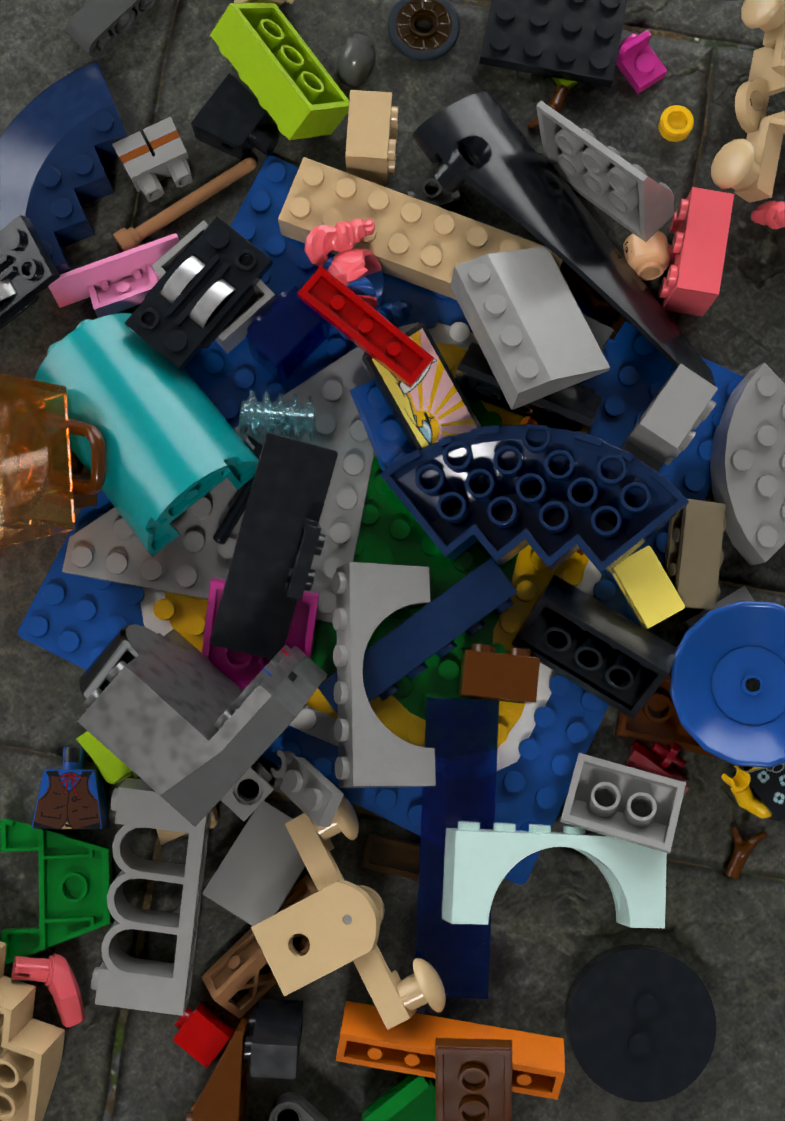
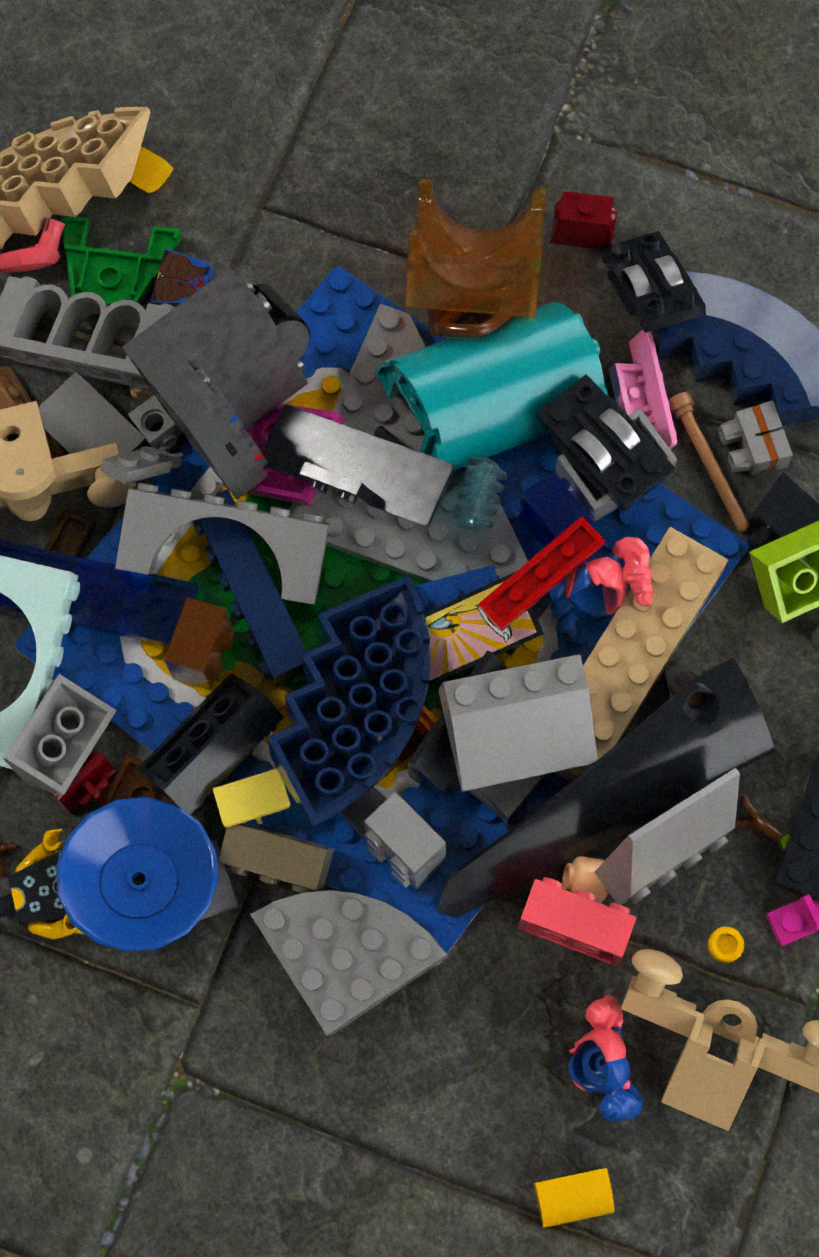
camera: 105 degrees right, 10 degrees down
(371, 136) = (743, 630): tan brick -> none

